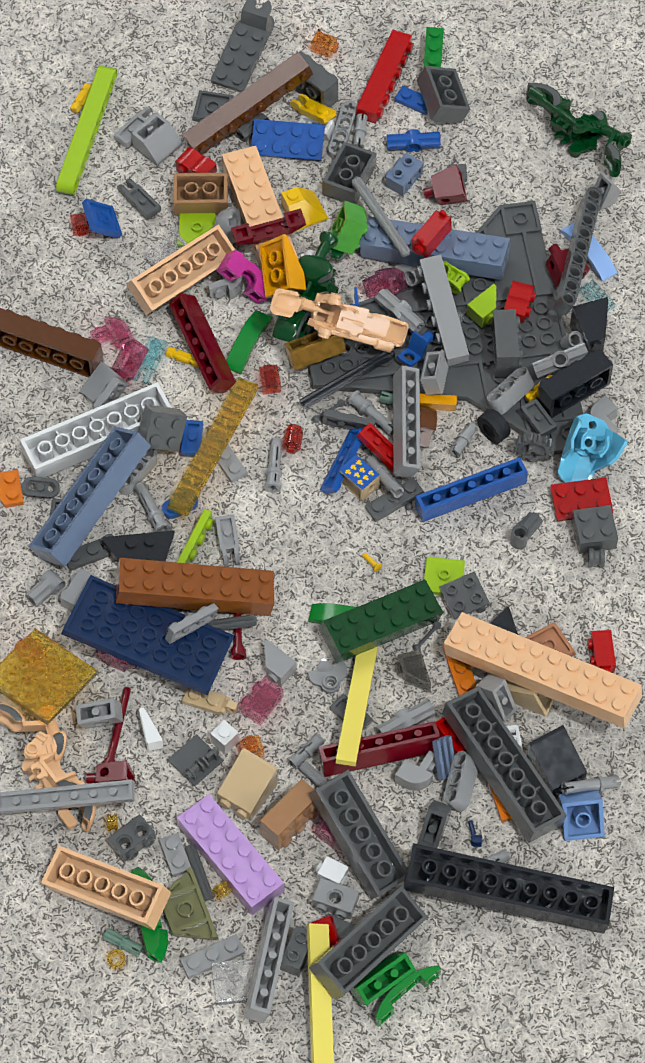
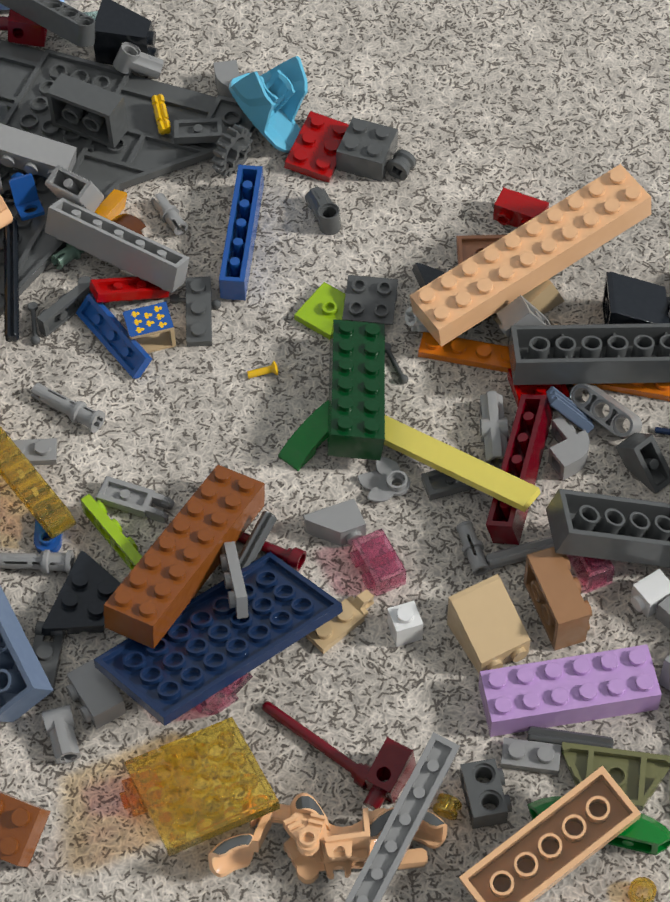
camera: 60 degrees left, 5 degrees down
(99, 713) = (289, 746): light grey brick -> none
(123, 942) = (623, 872): sand green axle -> none
(151, 735) = (343, 704): white slope -> none
(195, 760) = (412, 672): dark grey hinge -> none
(222, 890) = (611, 723): clear yellow bush -> none
(252, 744) = (436, 602): clear orange brick -> none
(292, 438) = (47, 371): clear red brick -> none
(366, 408) = (60, 283): light grey pin -> none
(386, 479) = (175, 301): light grey pin -> none
(413, 670) = (435, 391): clear smoke slope -> none
(482, 307) = (24, 111): lime slope -> none
(493, 426) = (173, 165): black tyre -> none
(510, 390) = (148, 136): light grey beam -> none
(520, 298) = (35, 78): red brick -> none
(548, 365) = (149, 64): light grey piece -> none
(575, 383) = (183, 72): black brick -> none

